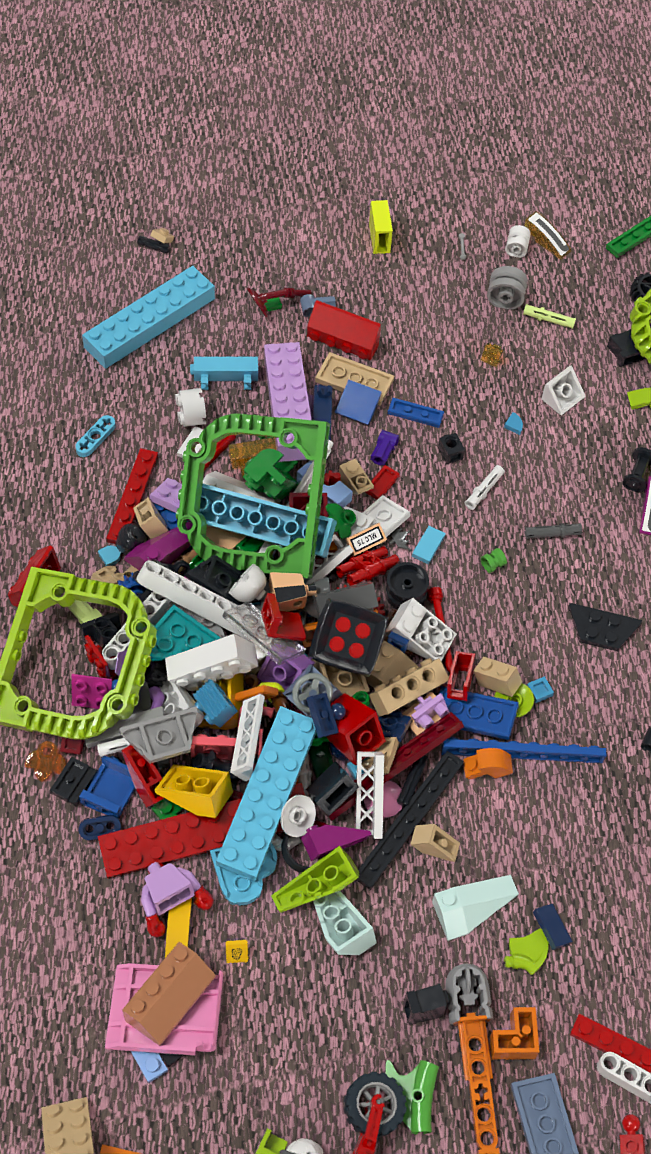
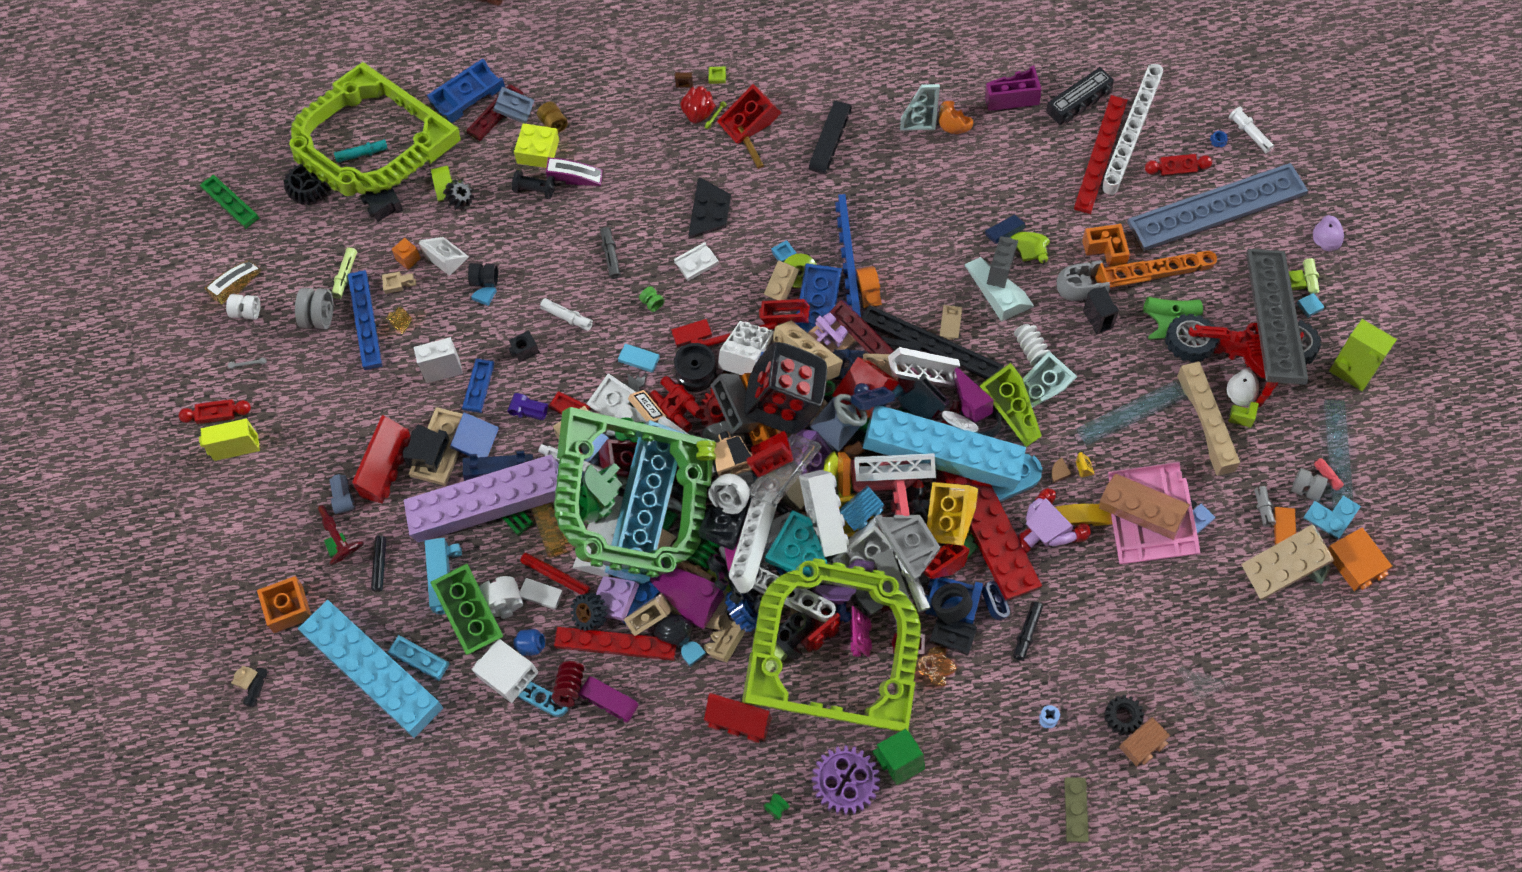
camera: 90 degrees left, 5 degrees up
(54, 849) = (1025, 637): none -> black pin
(79, 483) = (608, 698): none -> magenta beam
(96, 788) = (959, 611): none -> black tyre
(99, 451) = (567, 683): none -> dark red piece
(123, 408) = (505, 670): none -> white brick
(147, 429) = (529, 642): none -> blue head
(149, 1143) = (1264, 506): none -> light grey pin
(153, 353) = (418, 658): none -> medium azure tile
(163, 473) = (588, 611): none -> black wheel
(179, 374) = (466, 609): none -> bright green slope
(219, 260) = (284, 604): none -> orange brick
(236, 924) = (1059, 471): none -> medium nougat tile
(248, 329) = (378, 563): none -> black axle
(291, 1098) = (1220, 447): none -> tan arch
(292, 563) = (706, 450): none -> lime wheel
(295, 1020) = (1130, 413): none -> clear light blue tile
(348, 362) = (426, 448): none -> black hips
(394, 922) = (1031, 343): none -> white piece
(414, 222) = (214, 411): none -> red plate
(438, 375) = (438, 360): none -> white brick
(452, 593) = (683, 334): none -> red tile
(496, 329) = (365, 320): none -> blue plate
(500, 905) = (1002, 262): none -> dark grey brick
(535, 420) = (483, 275): none -> black wheel
(536, 354) = (395, 281): none -> tan plate
(537, 608) = (696, 261): none -> white plate
(564, 359) = (406, 253): none -> orange brick
(623, 404) = (458, 194): none -> black gear

